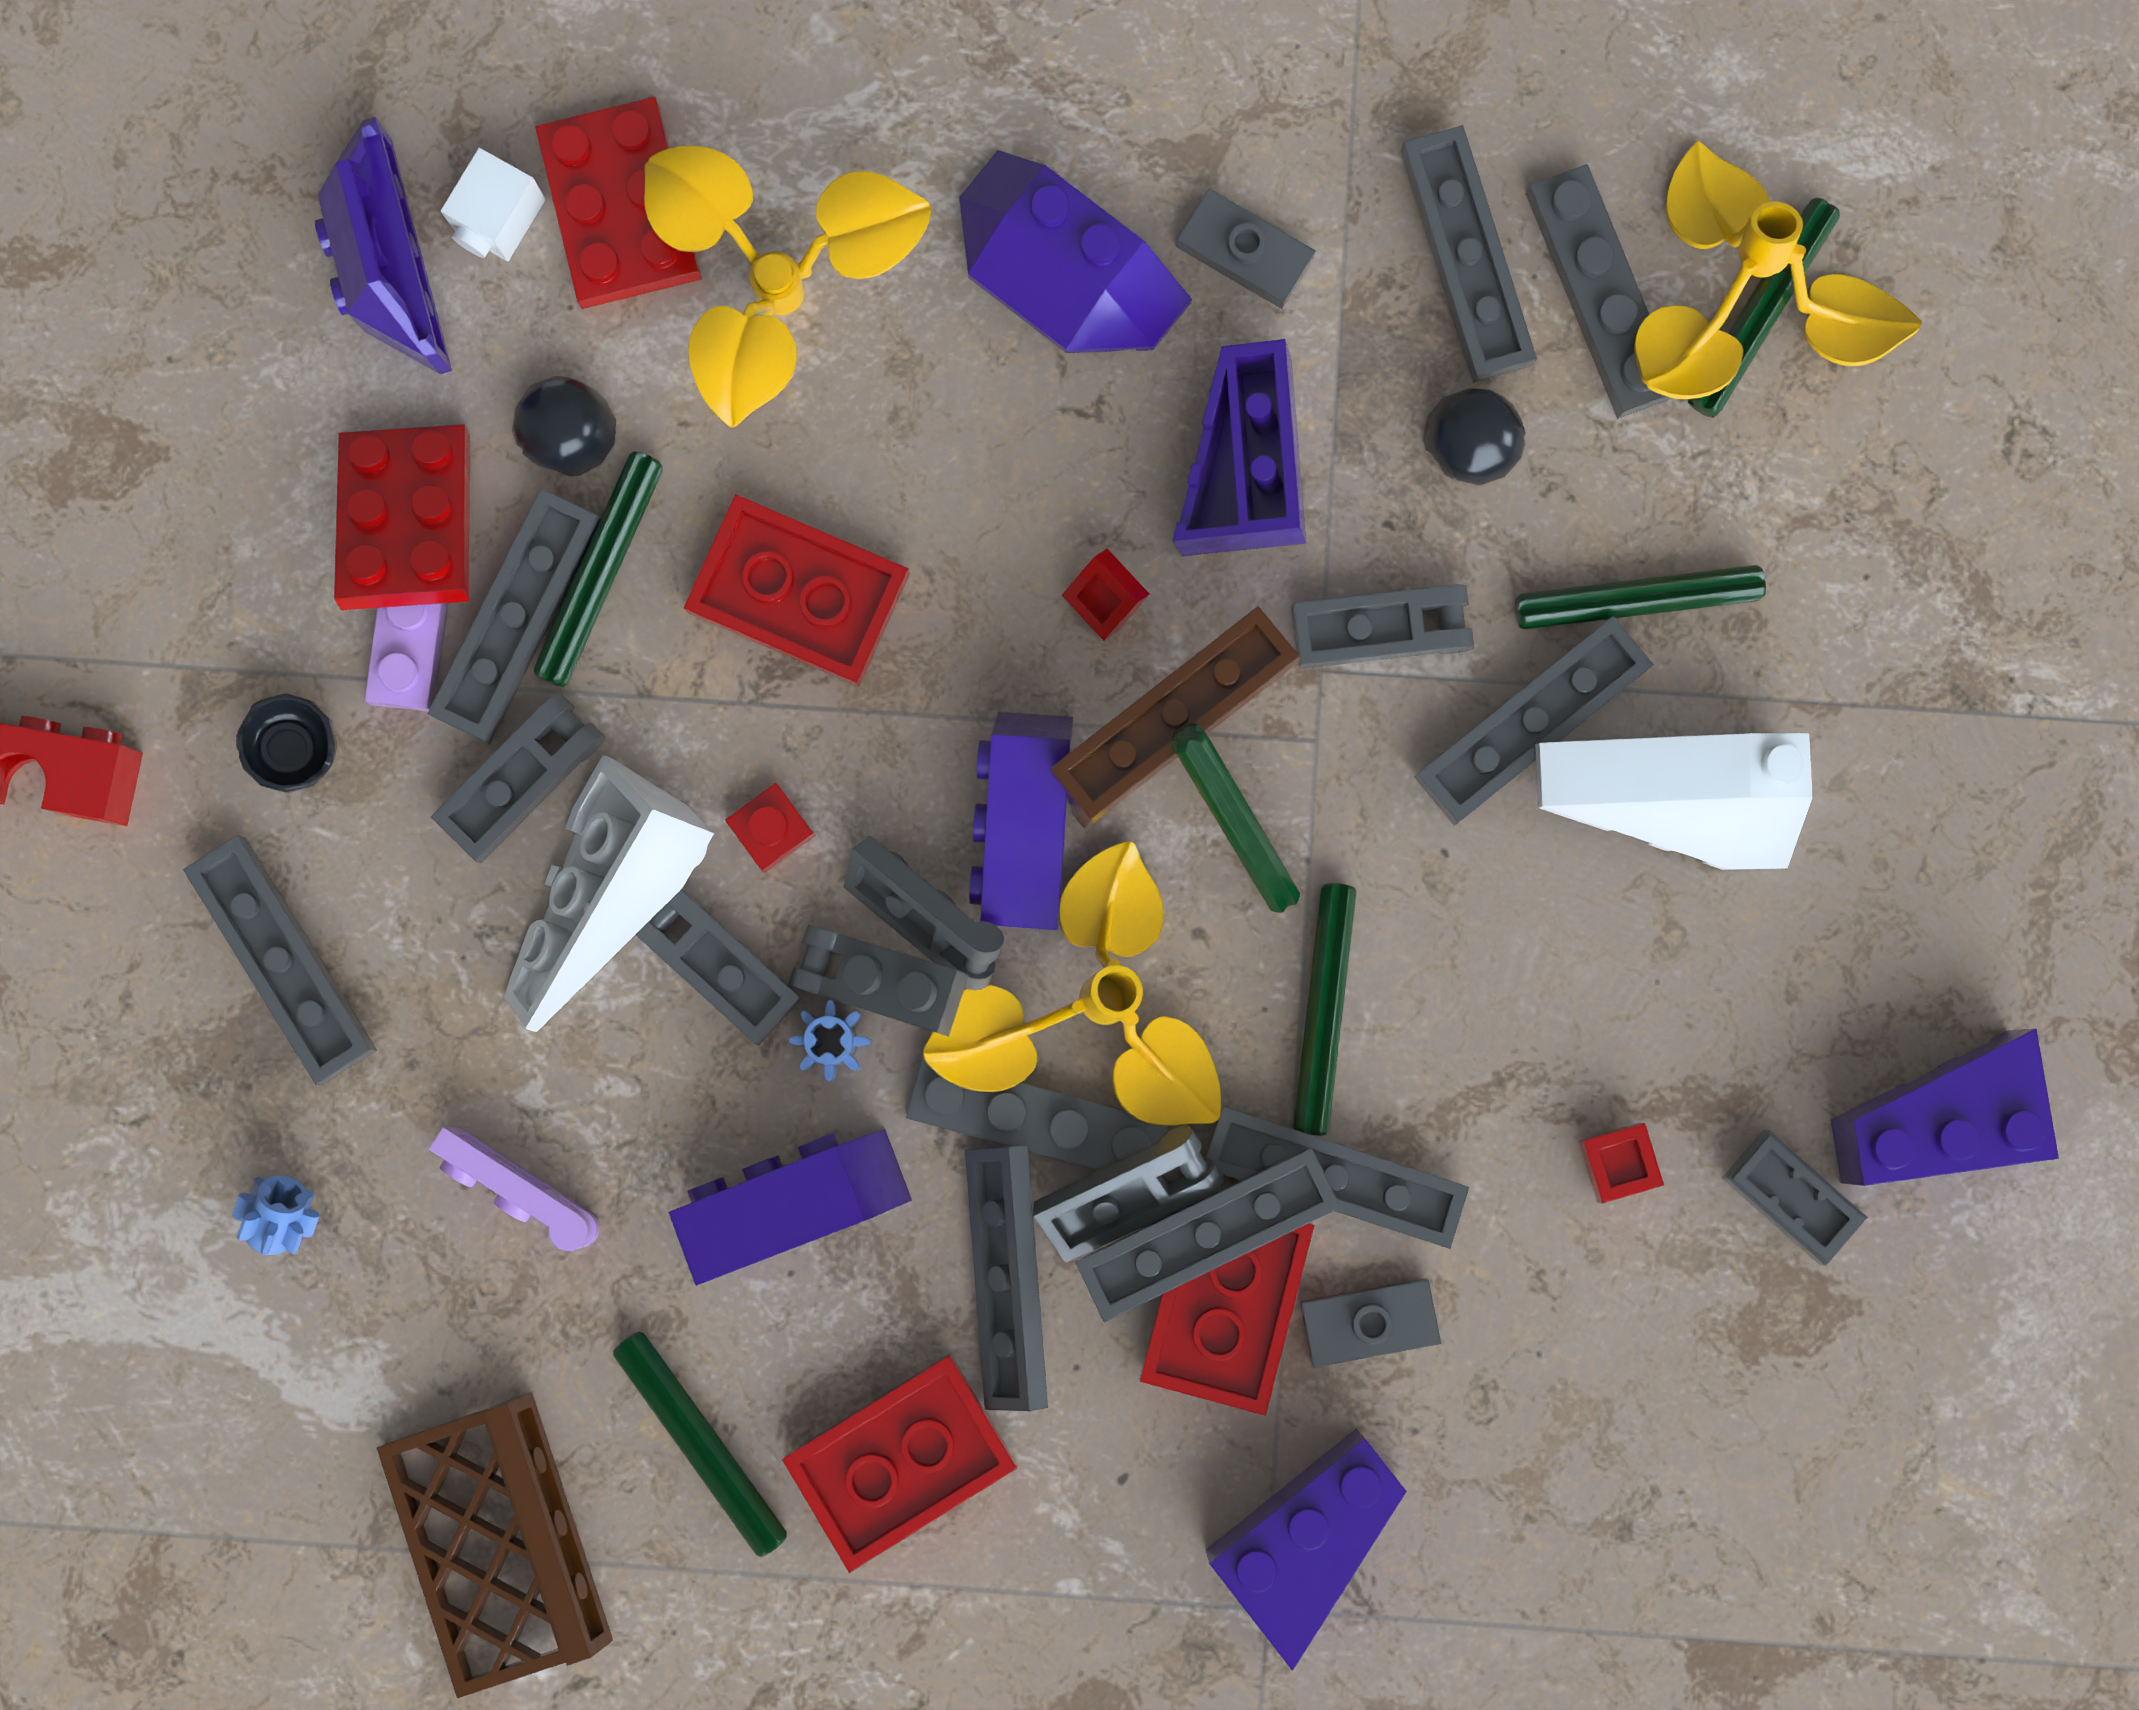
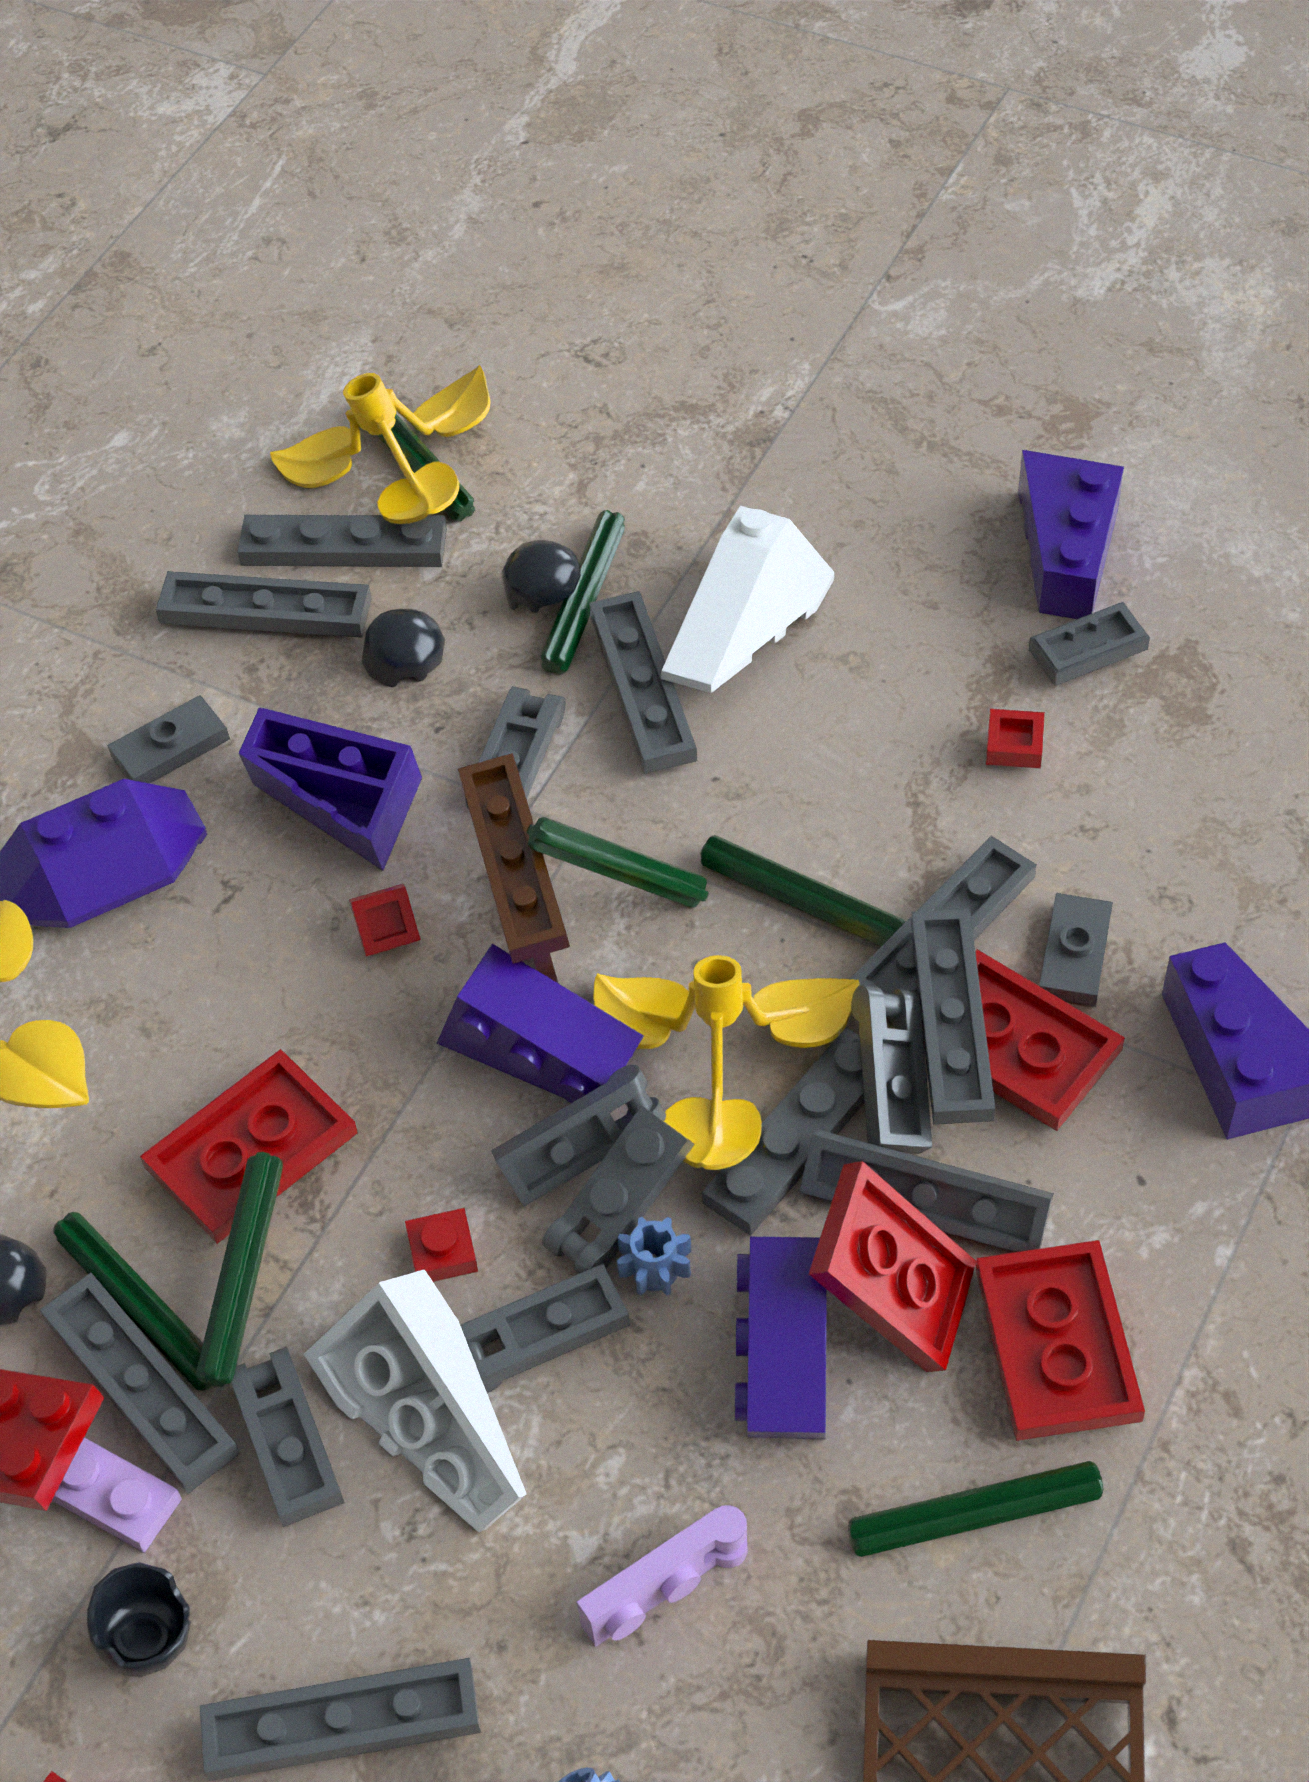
camera: 65 degrees left, 30 degrees down
(650, 656) = (239, 1270): none -> dark green axle
(881, 1287) = (893, 1267): none -> red plate
(1630, 544) = (540, 574): none -> black hair

